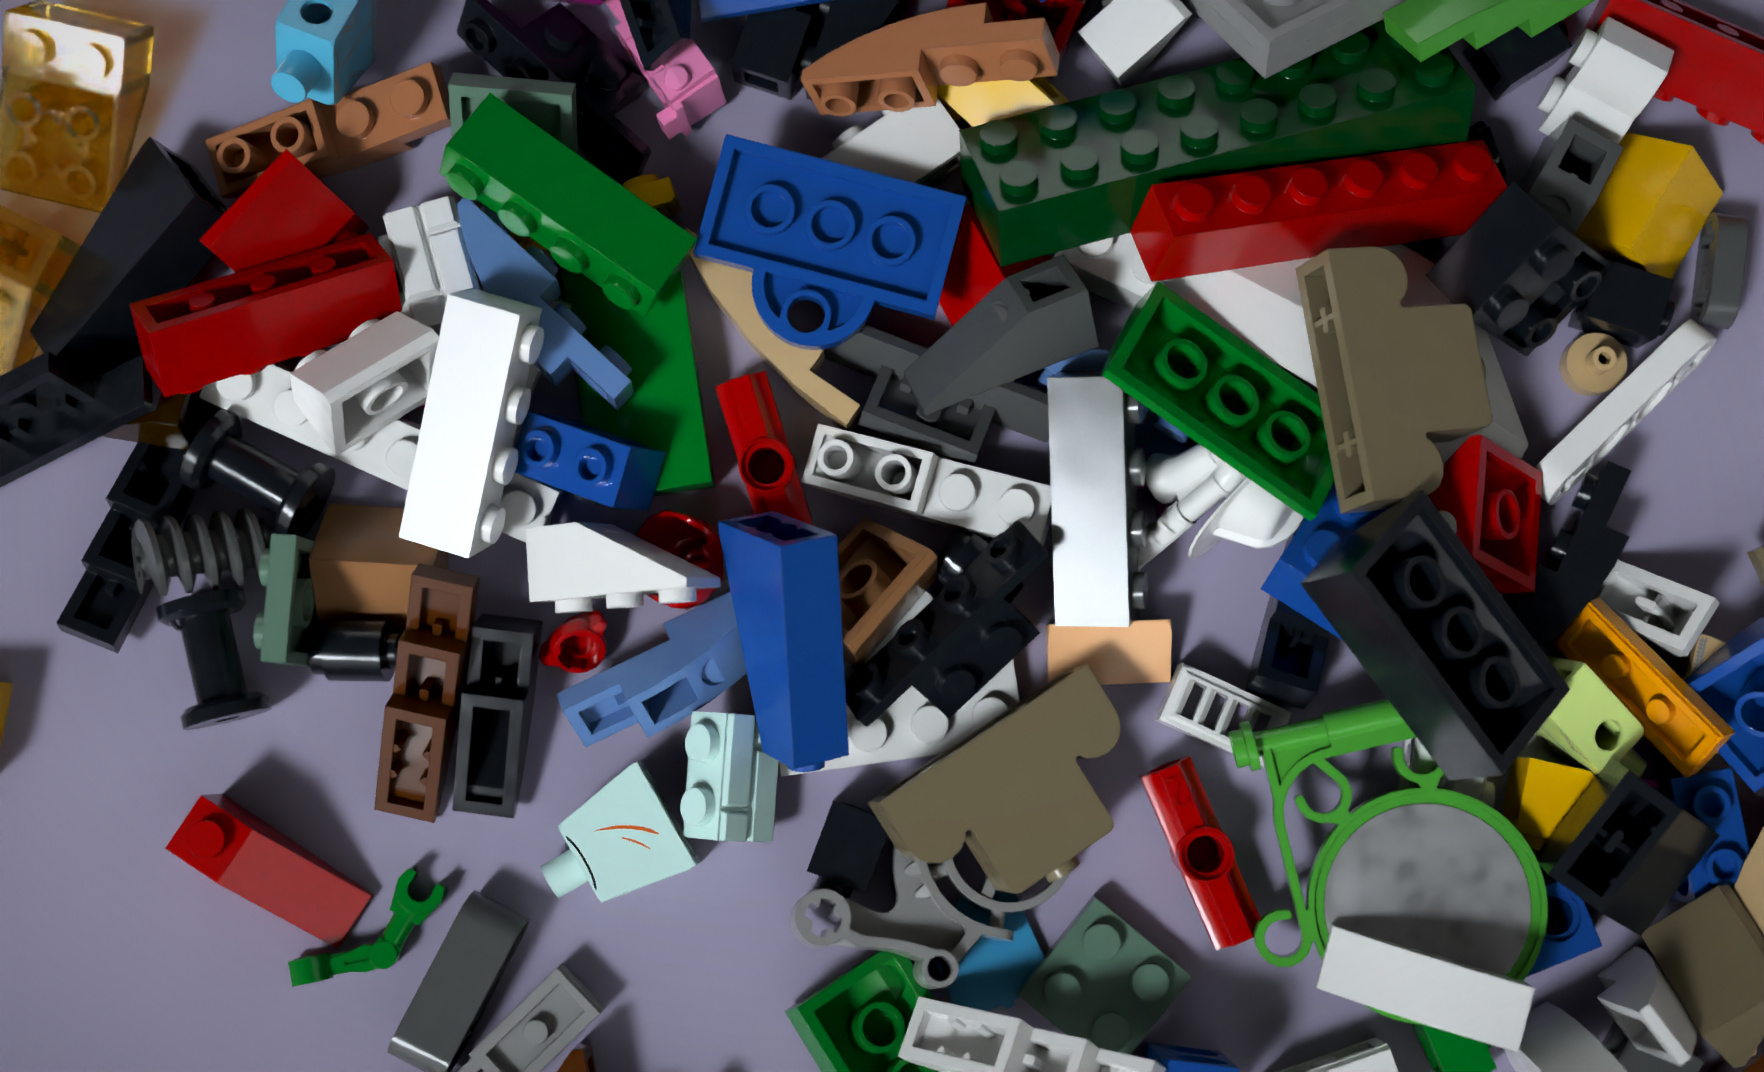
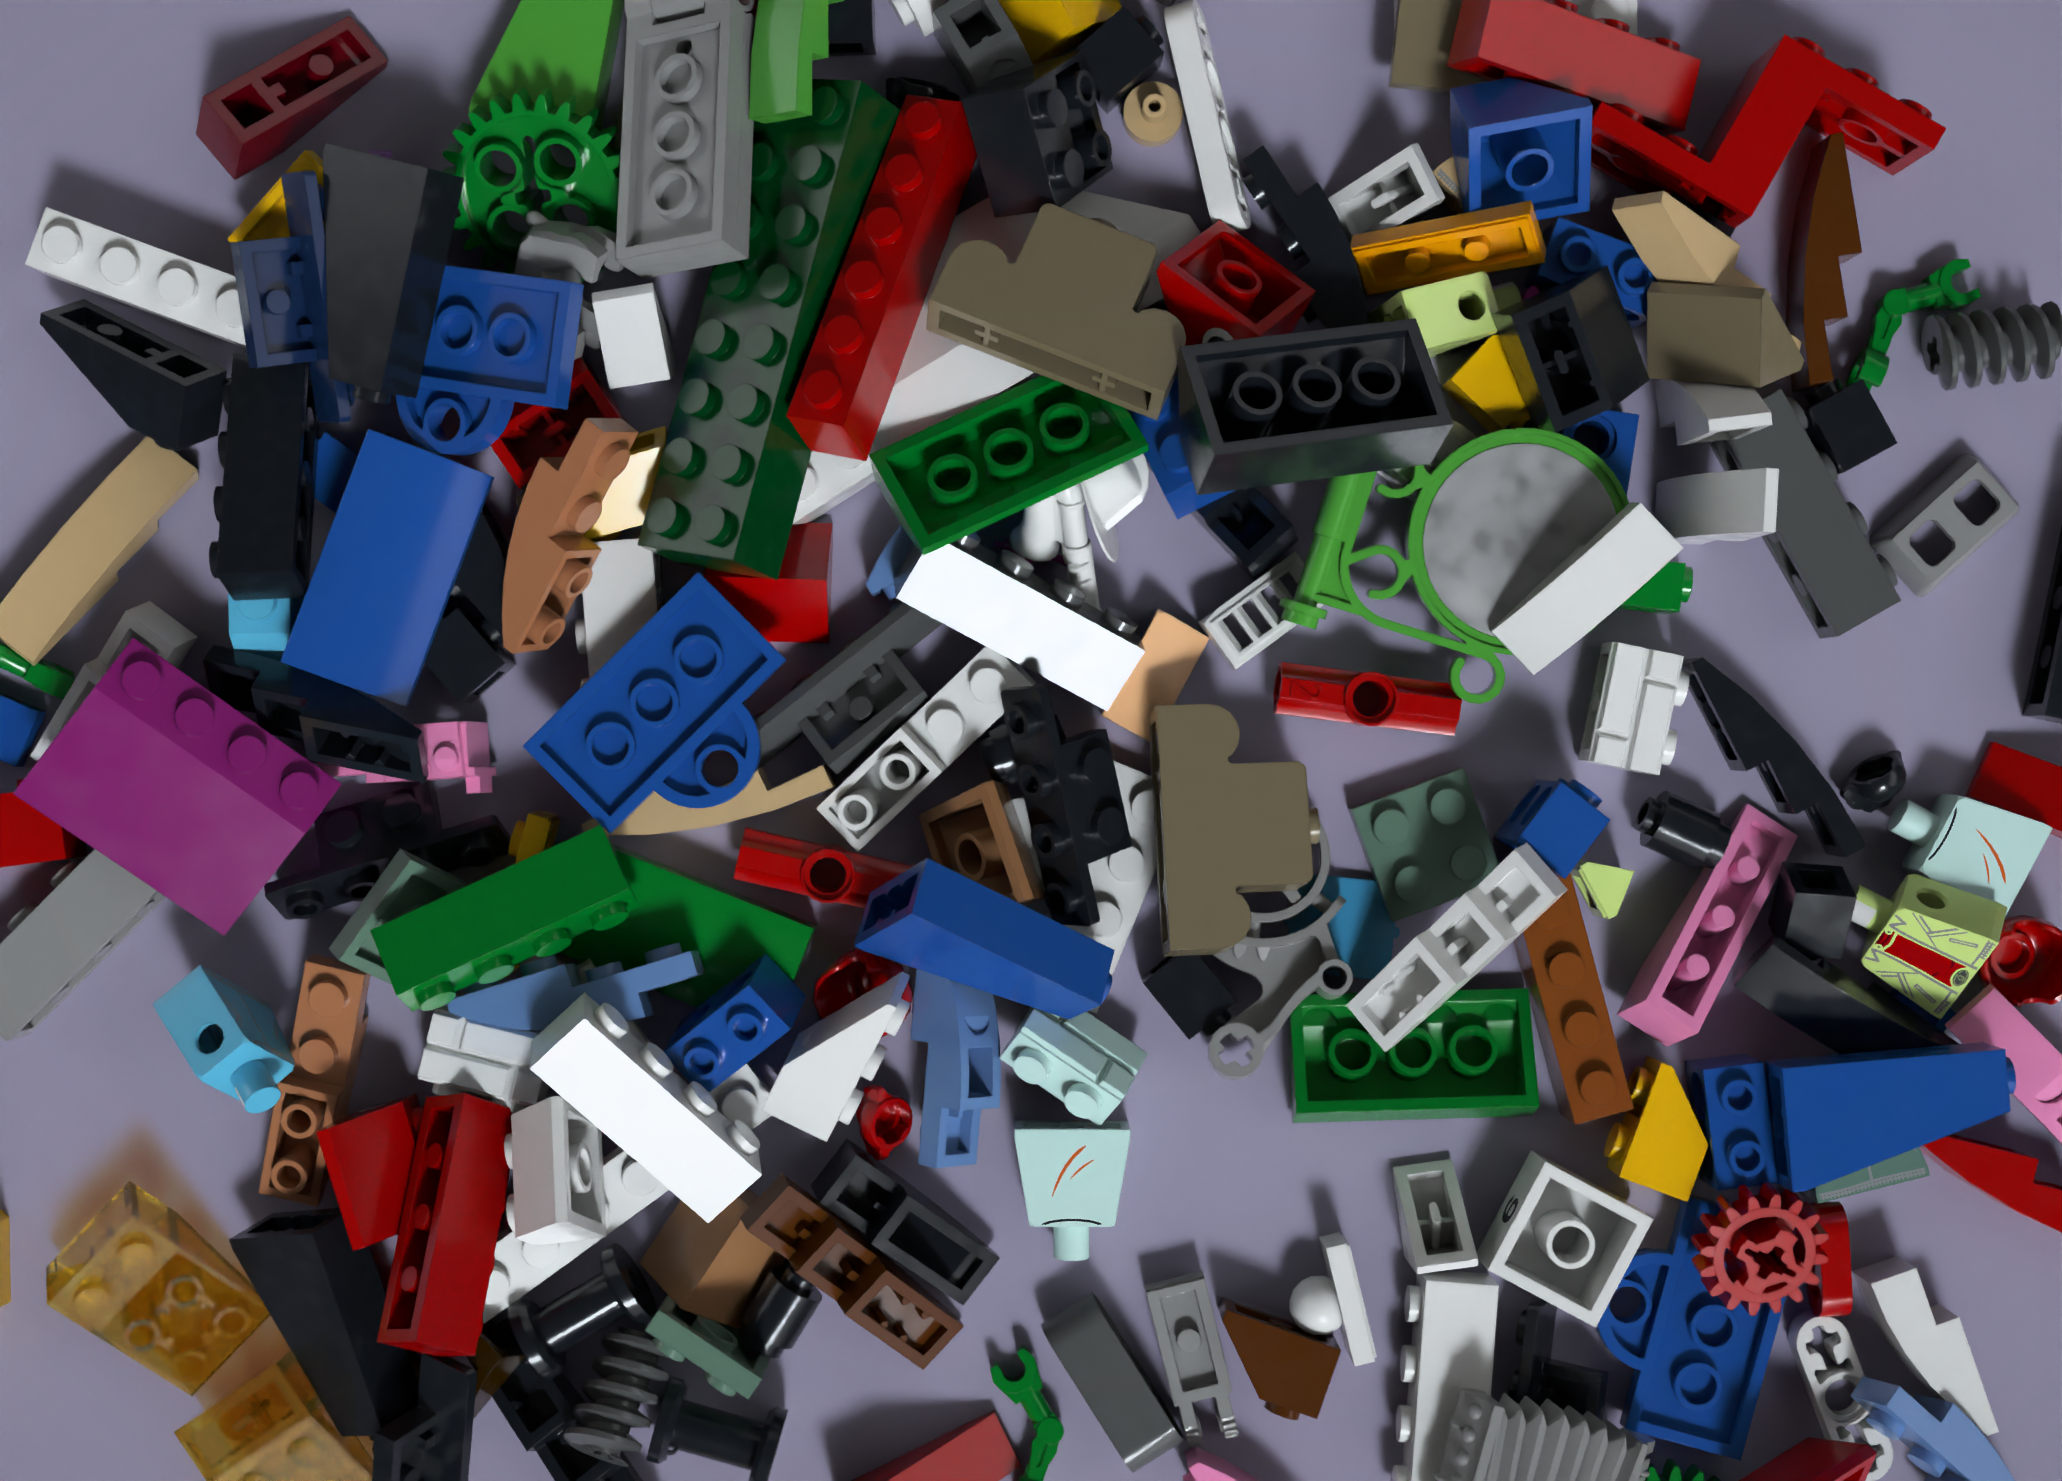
camera: 60 degrees left, 5 degrees up
(1011, 332) = (838, 606): dark grey slope -> none

